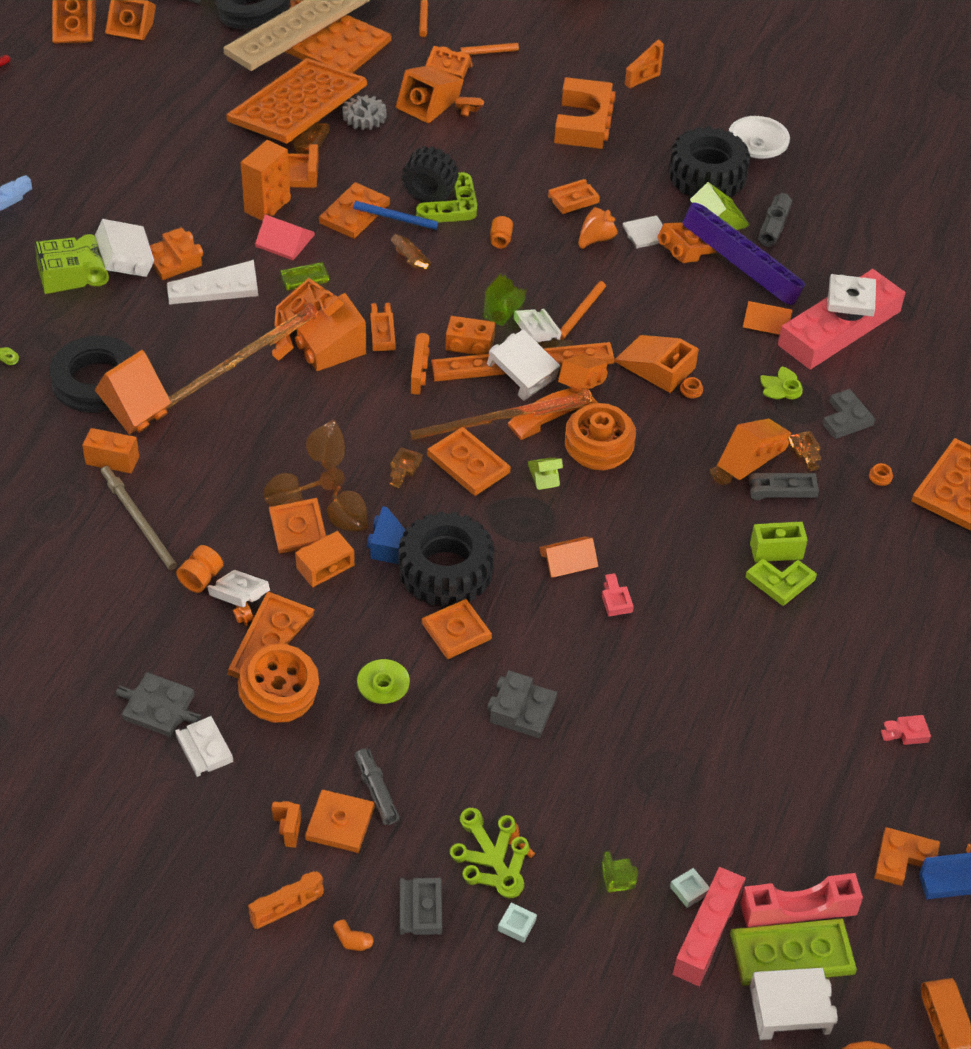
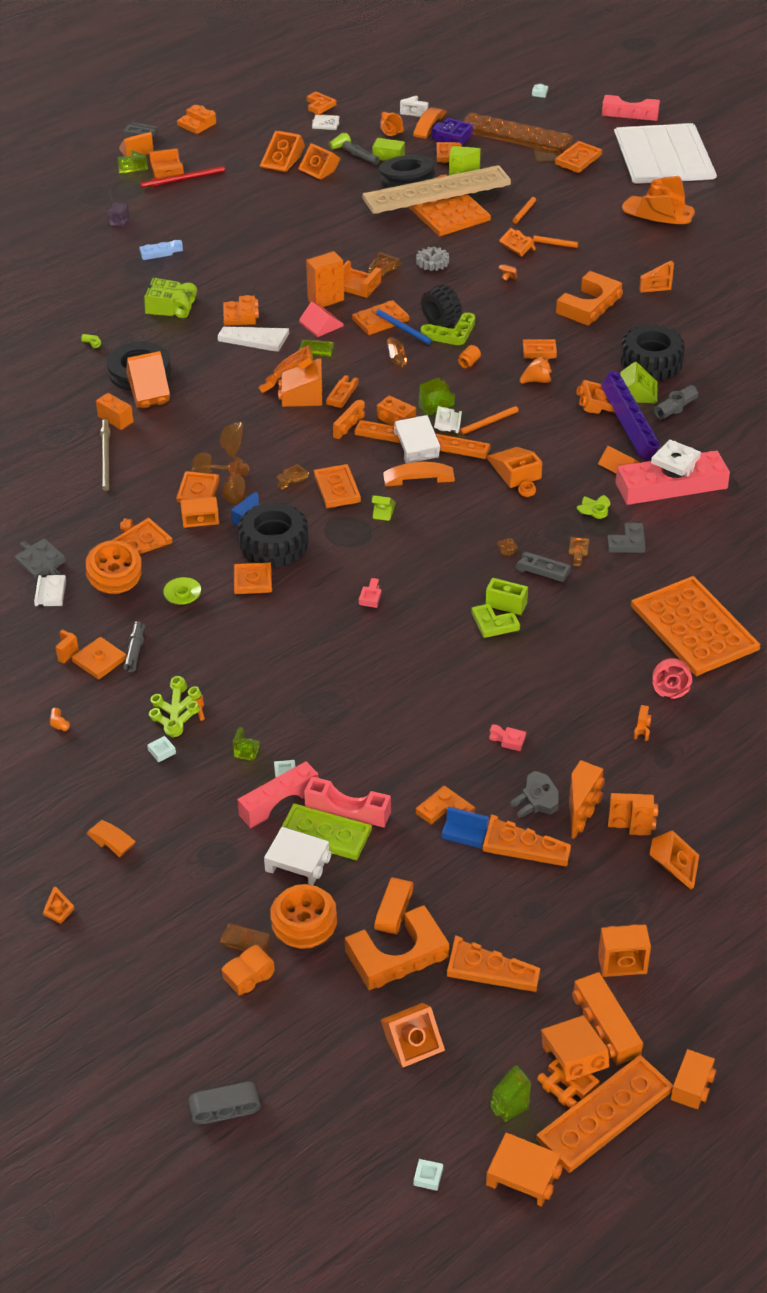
camera: 30 degrees right, 5 degrees down
(124, 248) = (208, 297): white brick -> none
(199, 568) = (117, 492): orange wheel -> none
(239, 588) = (134, 509): white plate -> none
(286, 900) = (33, 686): orange hinge -> none
(296, 100) = (391, 239): orange plate -> none
(310, 312) = (261, 373): clear orange bar -> none
(420, 906) = (110, 718): dark grey plate -> none
(428, 92) = (485, 256): orange slope -> none
(521, 704) = (260, 633): dark grey plate -> none
(538, 409) = (403, 467): clear orange bar -> none
(570, 556) = (359, 561): orange panel -> none
(583, 372) = (452, 454): orange brick -> none
(608, 436) = (434, 497): orange wheel -> none
(643, 231) = (571, 383): white piece -> none
(753, 446) = (535, 532): orange wedge -> none
(762, 136) = (706, 345): white dish -> none
(881, 474) = (620, 582): orange plate -> none

